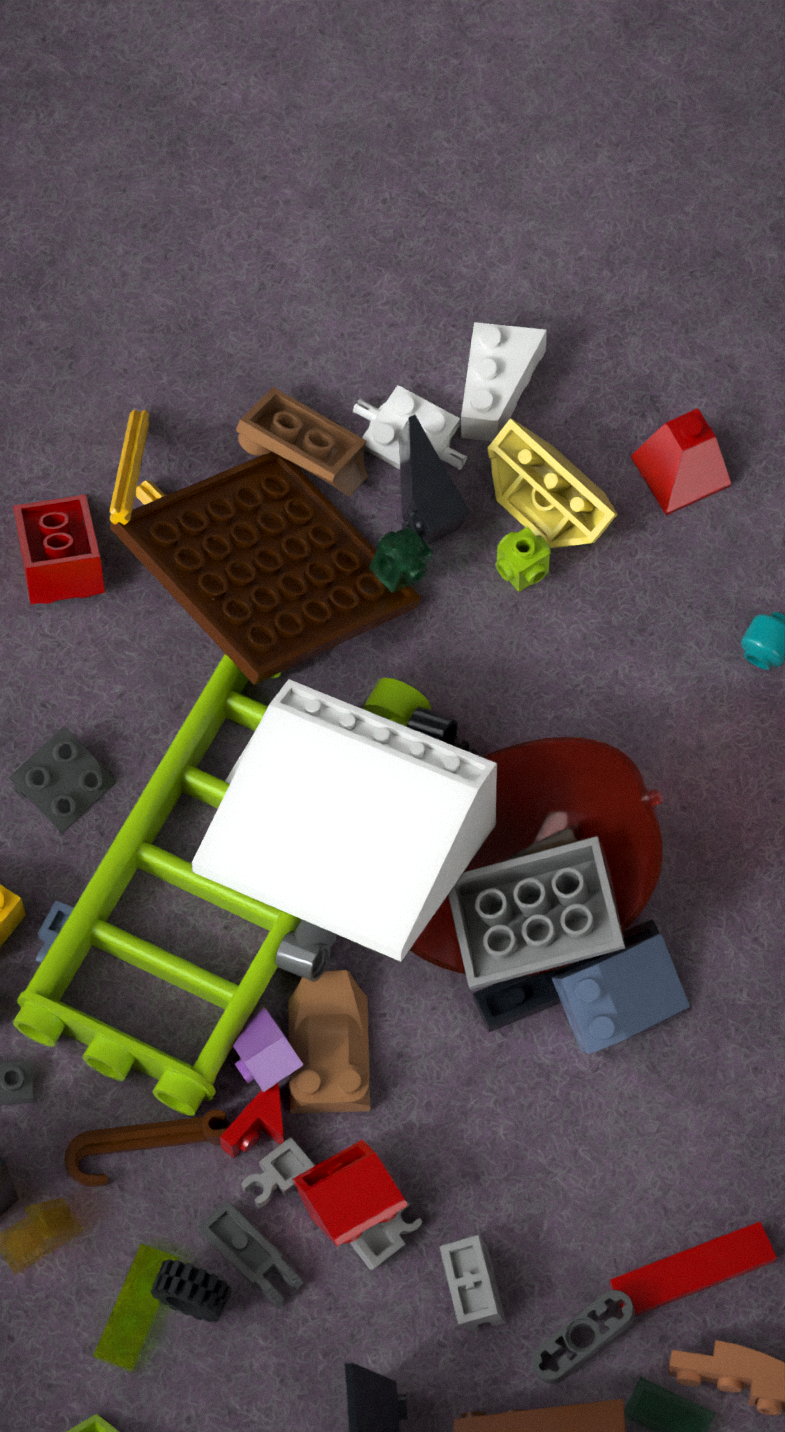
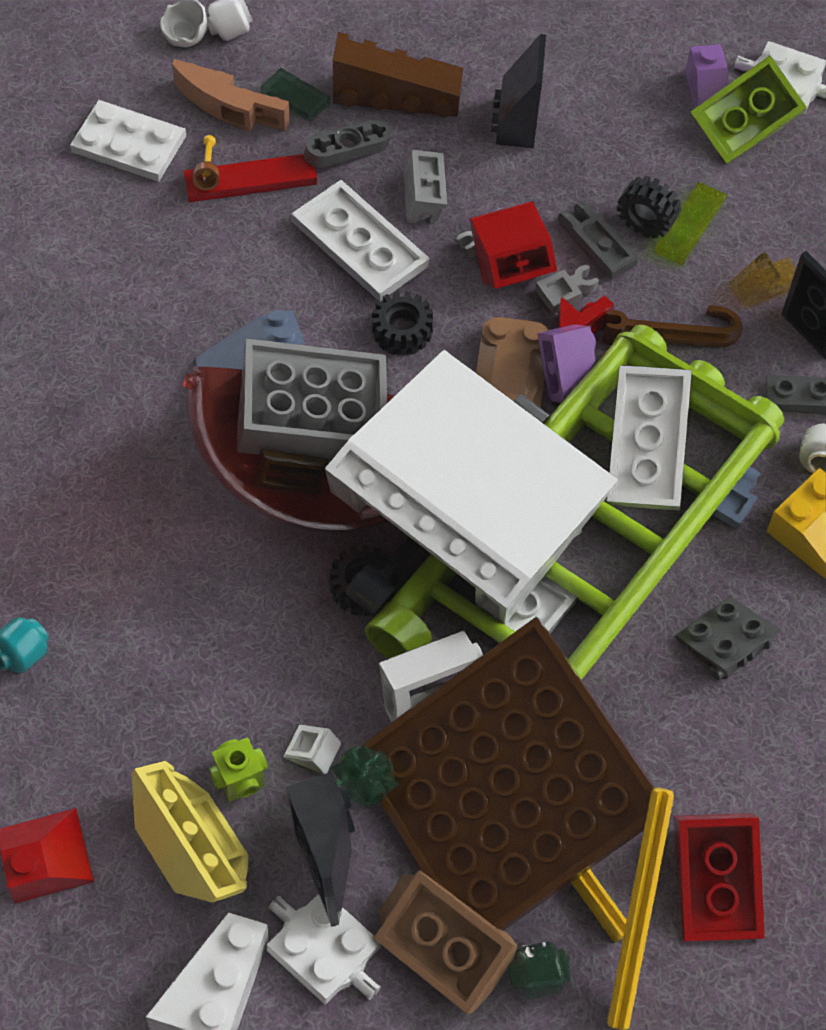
camera: 175 degrees left, 5 degrees down
(162, 952) = (649, 437): none -> white plate
(213, 436) = (539, 970): none -> clear green head
(354, 654) = (423, 667): none -> white window
(459, 603) = (313, 748): none -> white slope
(466, 1064) = (402, 307): none -> black tyre
(537, 1196) = (360, 240): none -> white plate
(745, 1243) = (206, 168): none -> dark orange hinge

